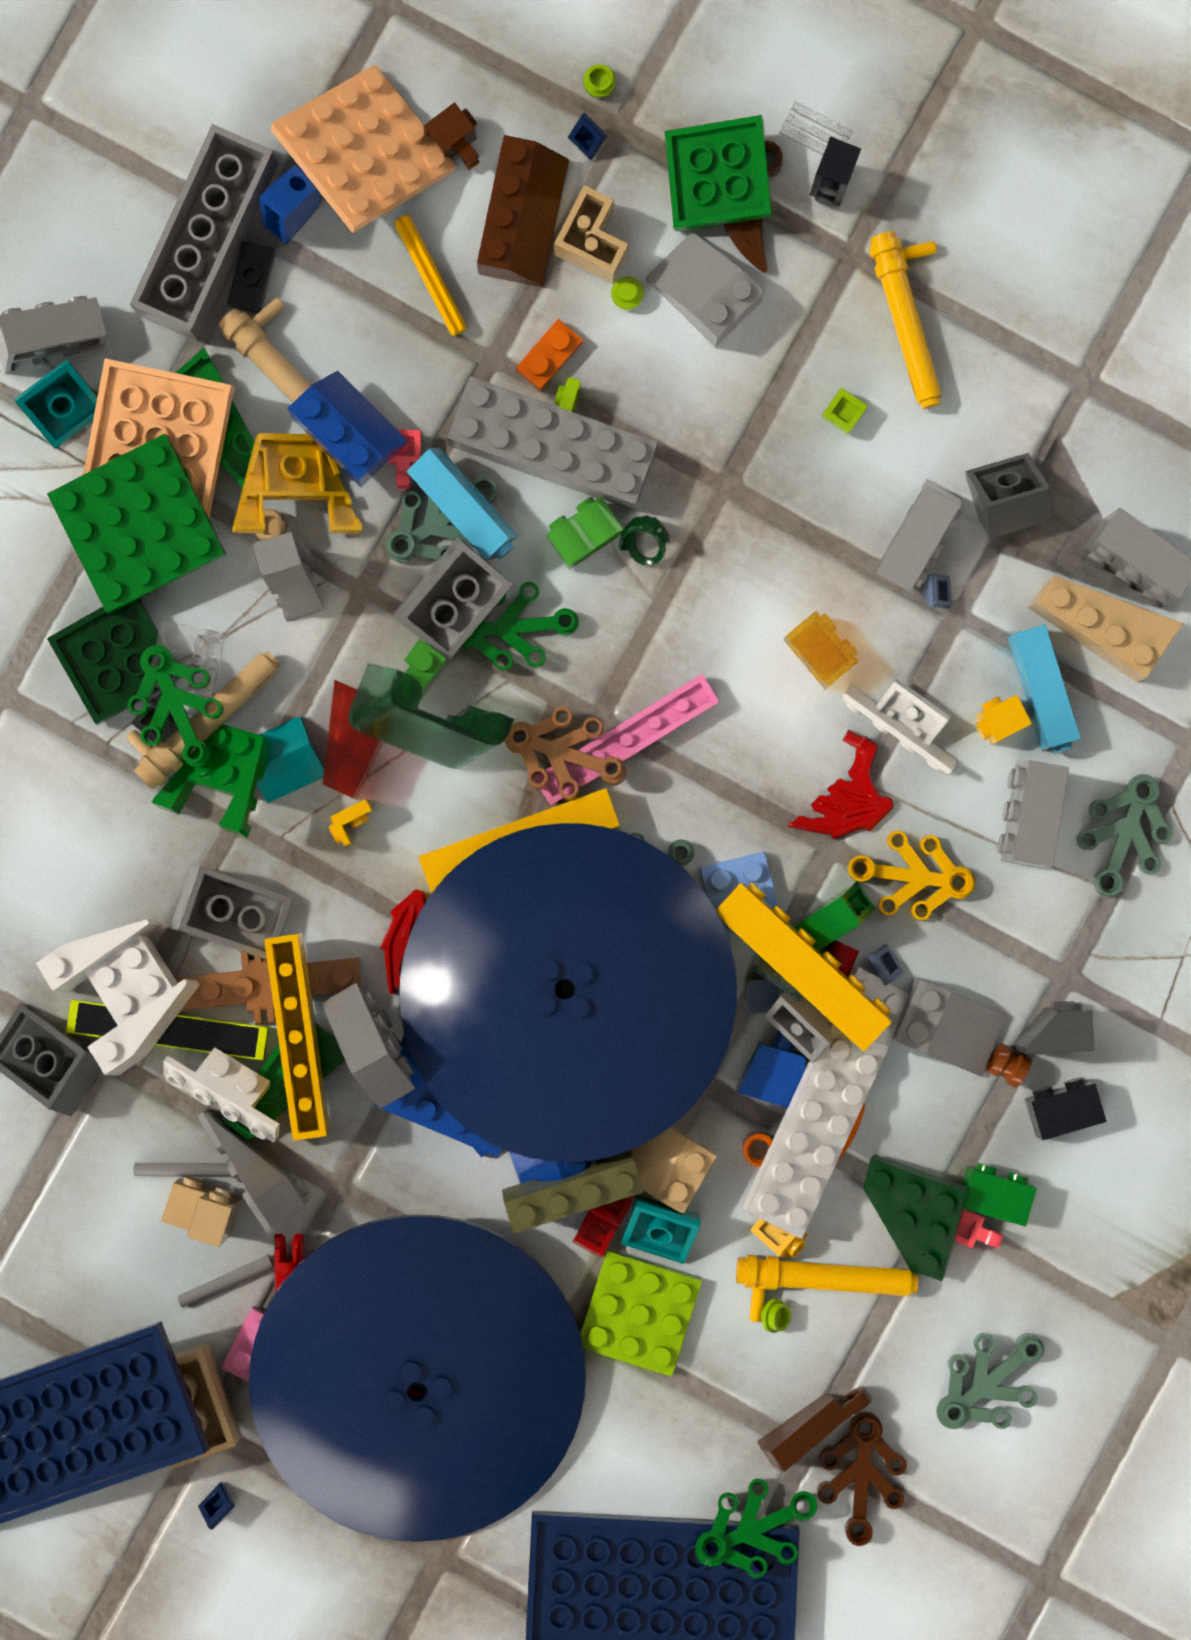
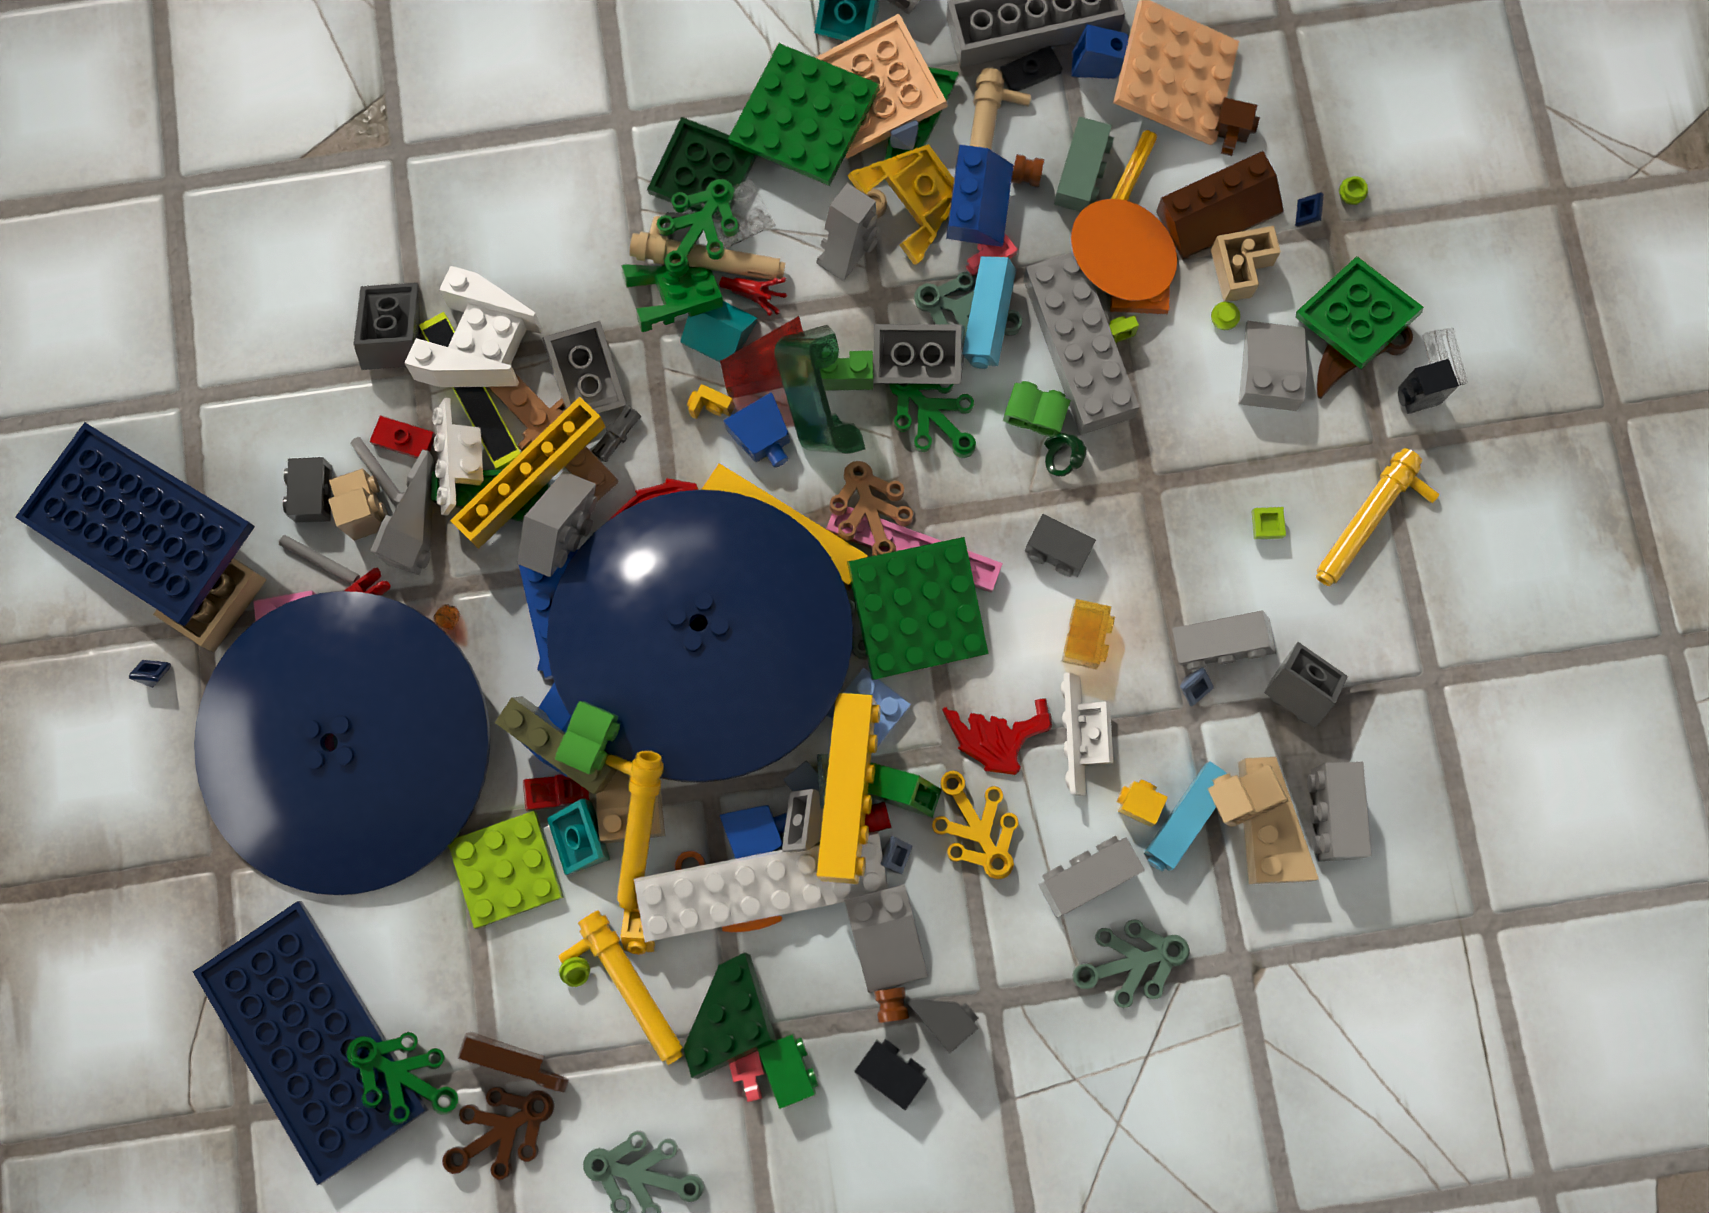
camera: 60 degrees right, 10 degrees down
(151, 1246) = (308, 489): none -> dark grey brick
(165, 1124) = (401, 437): none -> red plate
(234, 448) = (905, 136): none -> sand blue slope
(273, 699) = (754, 290): none -> red piece
(313, 926) = (616, 433): none -> dark grey pin
(351, 359) = (1027, 170): none -> dark orange wheel
(370, 1203) = (447, 617): none -> clear orange hinge
(386, 304) = (1084, 164): none -> sand green brick
(413, 794) = (760, 430): none -> blue torso
(497, 335) = (1124, 249): none -> orange sticker
(595, 1162) = (587, 738): none -> bright green brick
(675, 1144) = (644, 788): none -> yellow cylinder
(686, 780) = (917, 608): none -> green plate
(724, 611) = (1059, 546): none -> dark grey brick
(1073, 630) = (1247, 796): none -> tan brick

